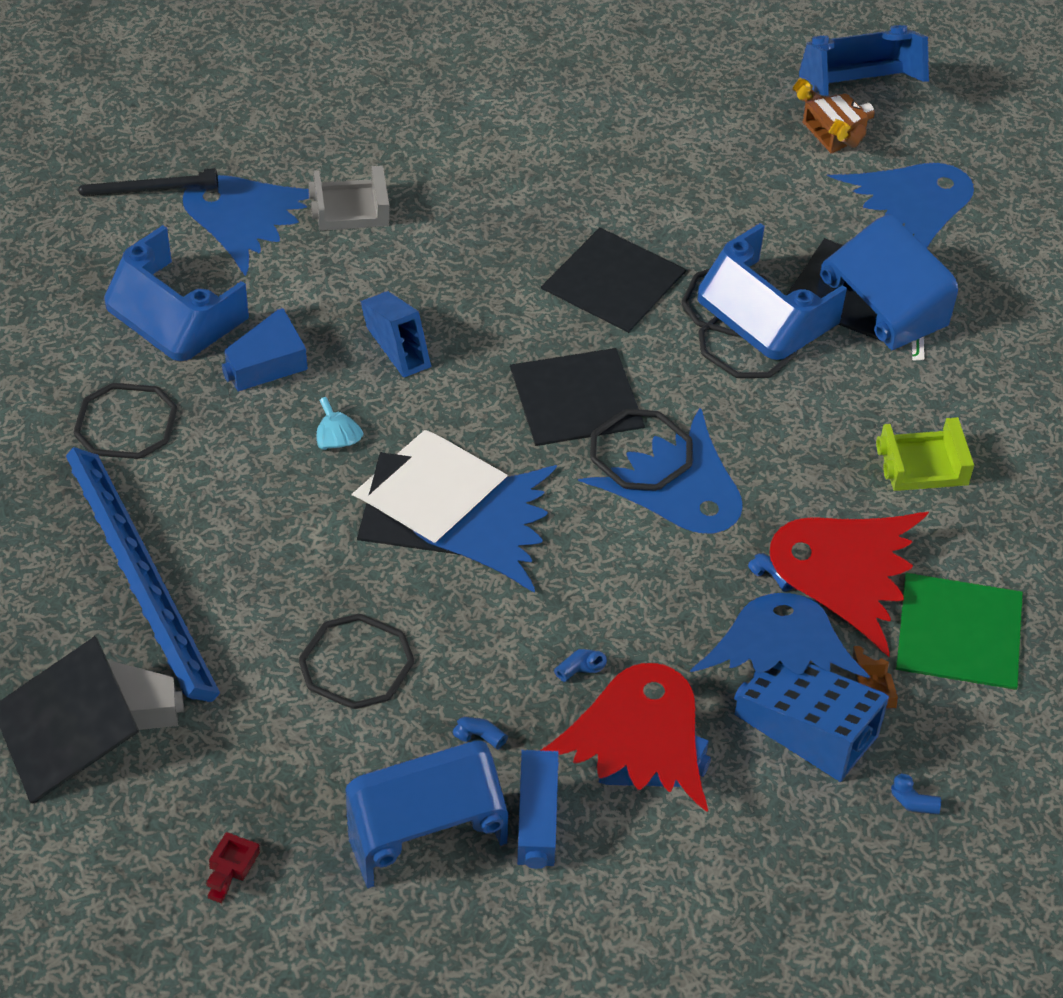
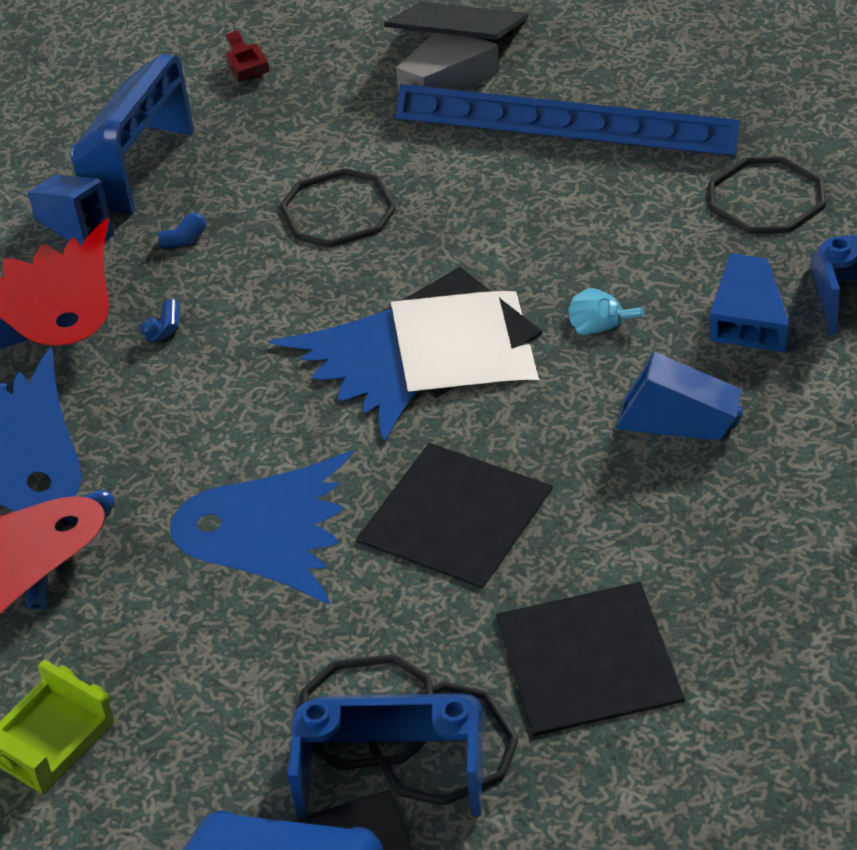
camera: 140 degrees right, 5 degrees down
(641, 486) = (338, 555): black piece -> none

